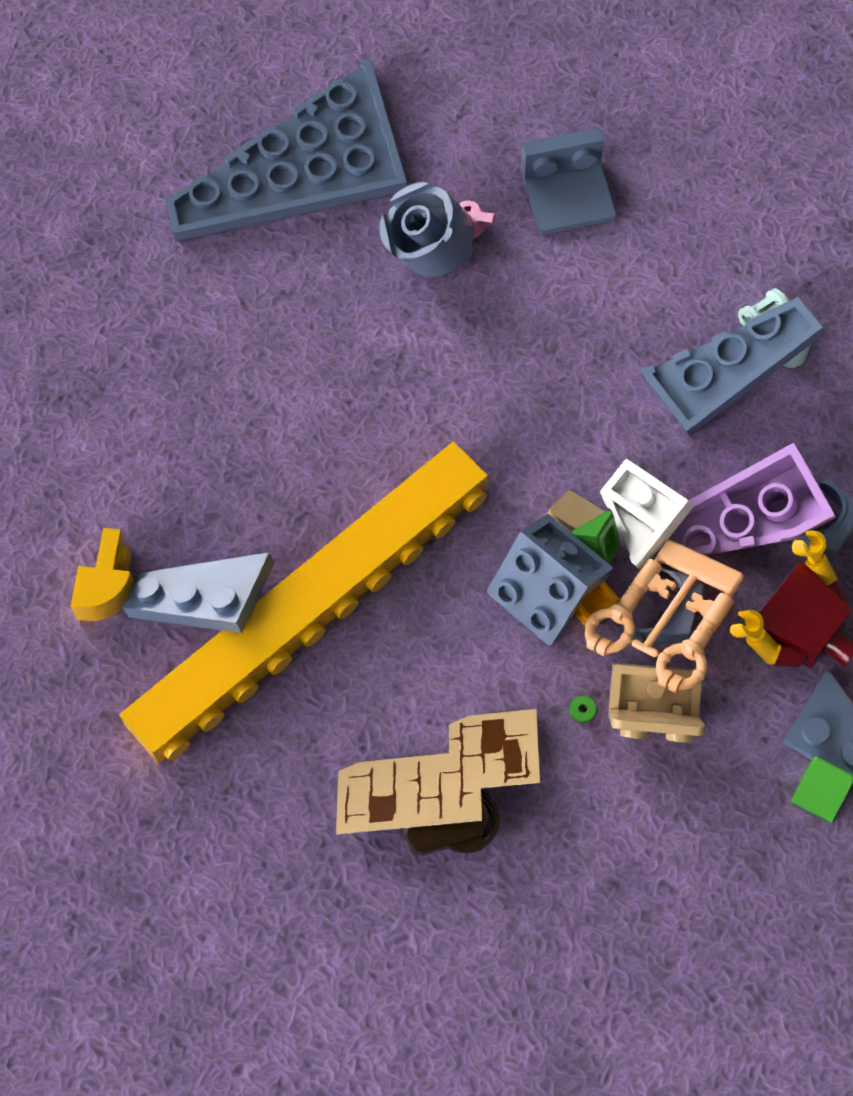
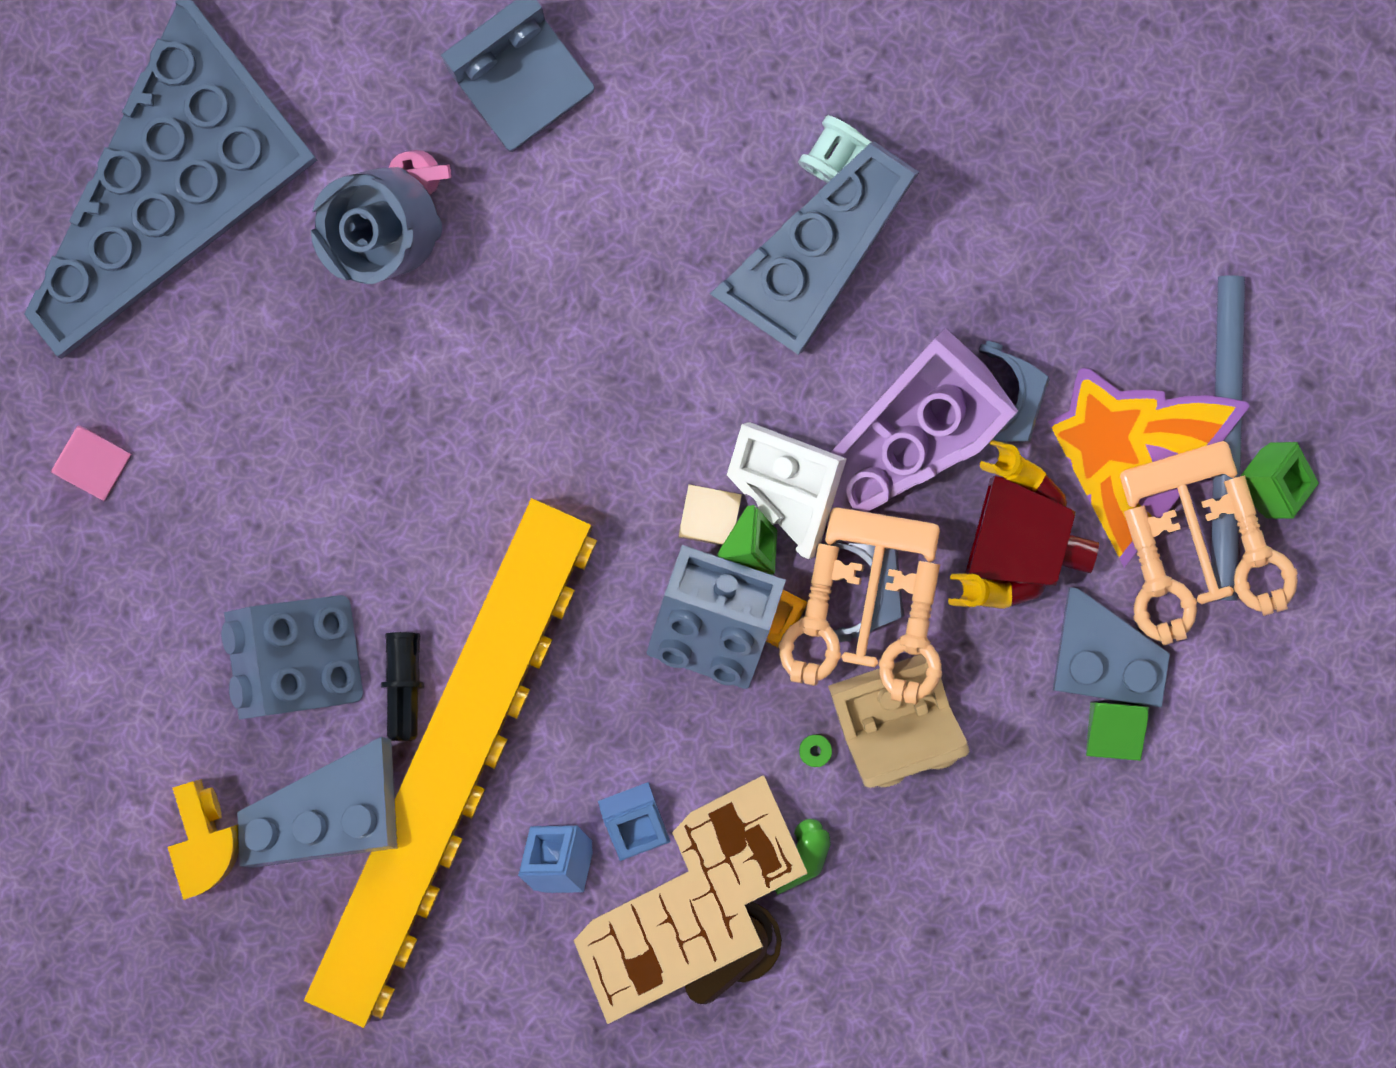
camera: 30 degrees left, 20 degrees up
(159, 308) = (91, 462): none -> bright pink slope
(233, 483) = (292, 656): none -> sand blue bracket
(301, 535) = (402, 685): none -> black axle
(354, 704) = (556, 859): none -> medium blue slope
(423, 704) = (633, 821): none -> medium blue slope
(552, 776) = (813, 849): none -> bright green arm

